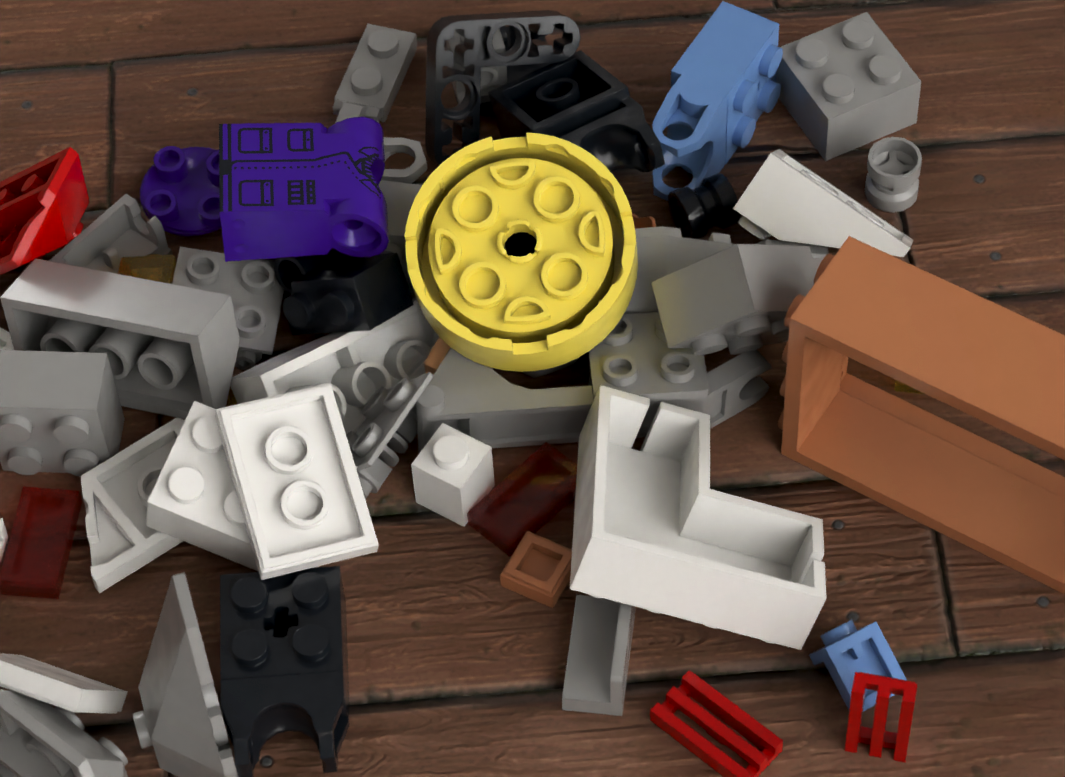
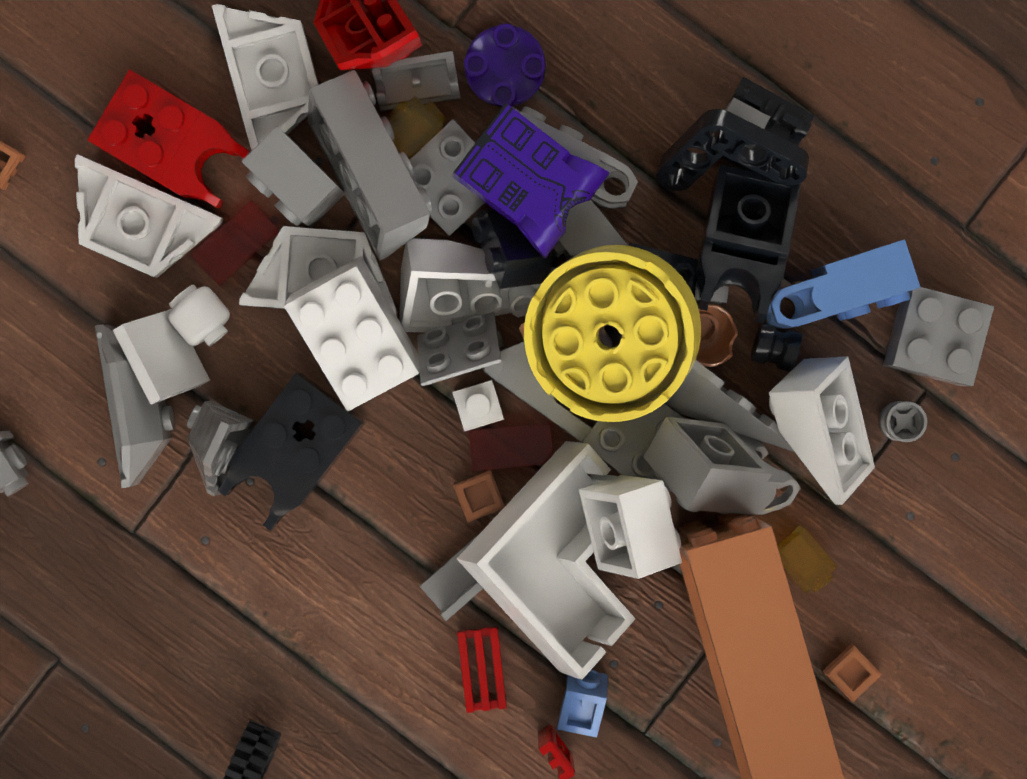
camera: 40 degrees right, 35 degrees up
(58, 623) = (199, 315): none -> white head
(296, 481) = (372, 363): white tile -> none
(375, 73) = (678, 70): light grey hinge -> none
(717, 399) = (631, 526): none -> white brick

